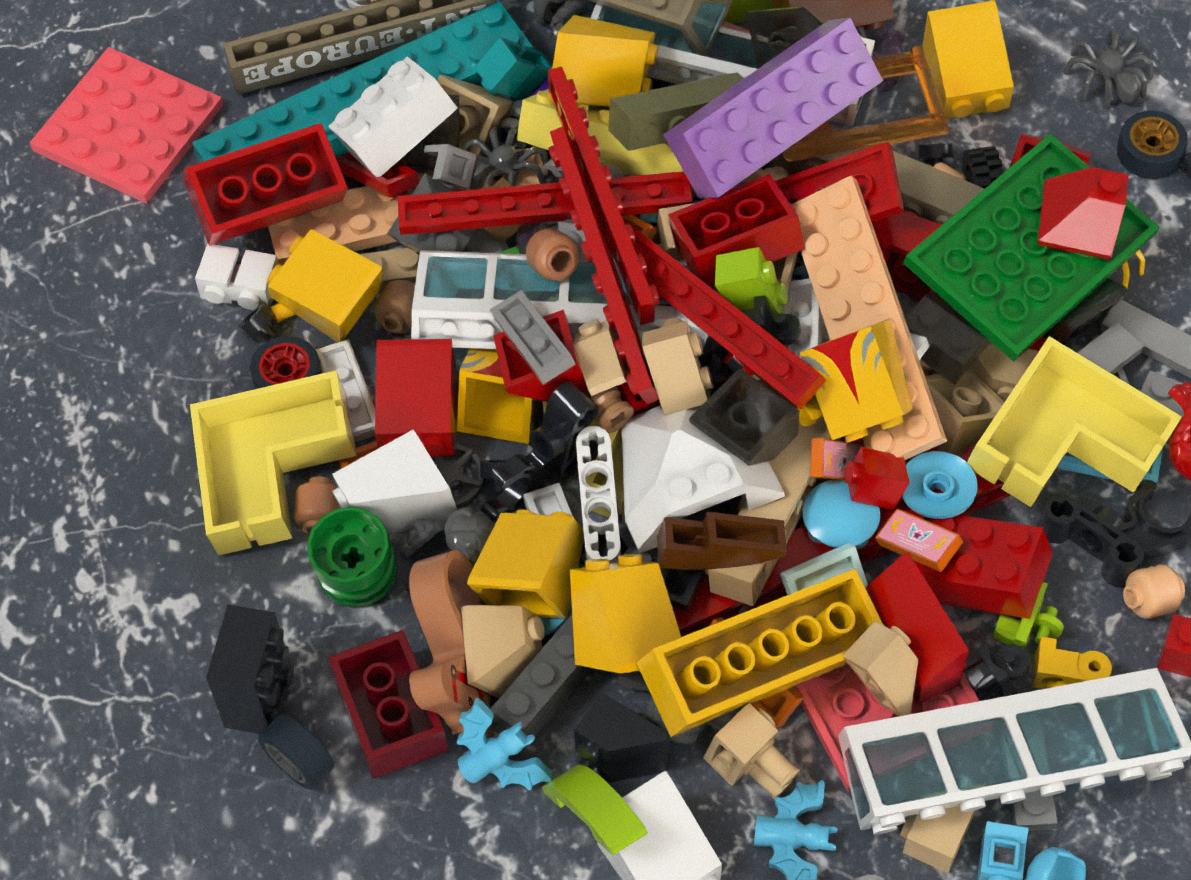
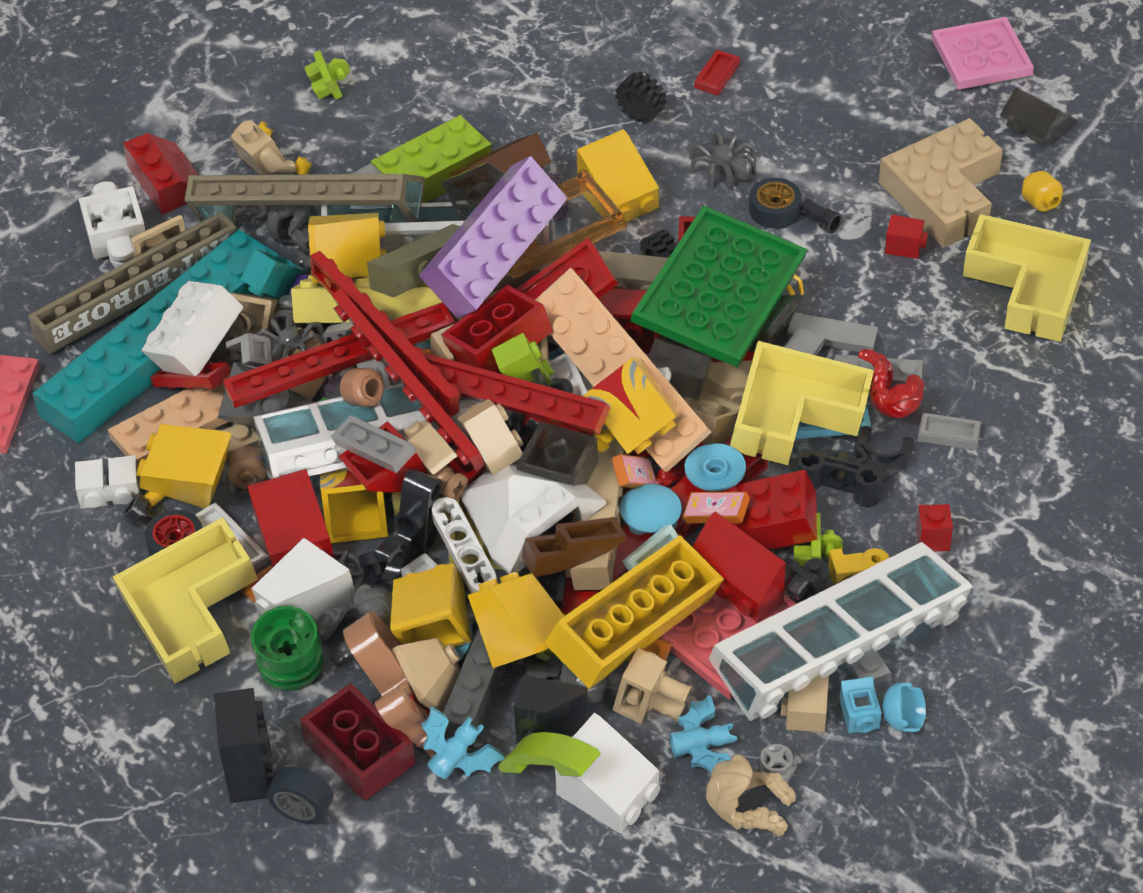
camera: 20 degrees left, 10 degrees down
(265, 184) = (108, 403): red brick -> none
(313, 502) = (238, 622): nougat head -> none
(876, 478) = (669, 474): red brick -> none
(885, 666) = (727, 596): tan slope -> none
(935, 152) = (619, 247): black tile -> none
(1083, 211) = (749, 249): red slope -> none
(1154, 591) = (897, 498): light nougat head -> none

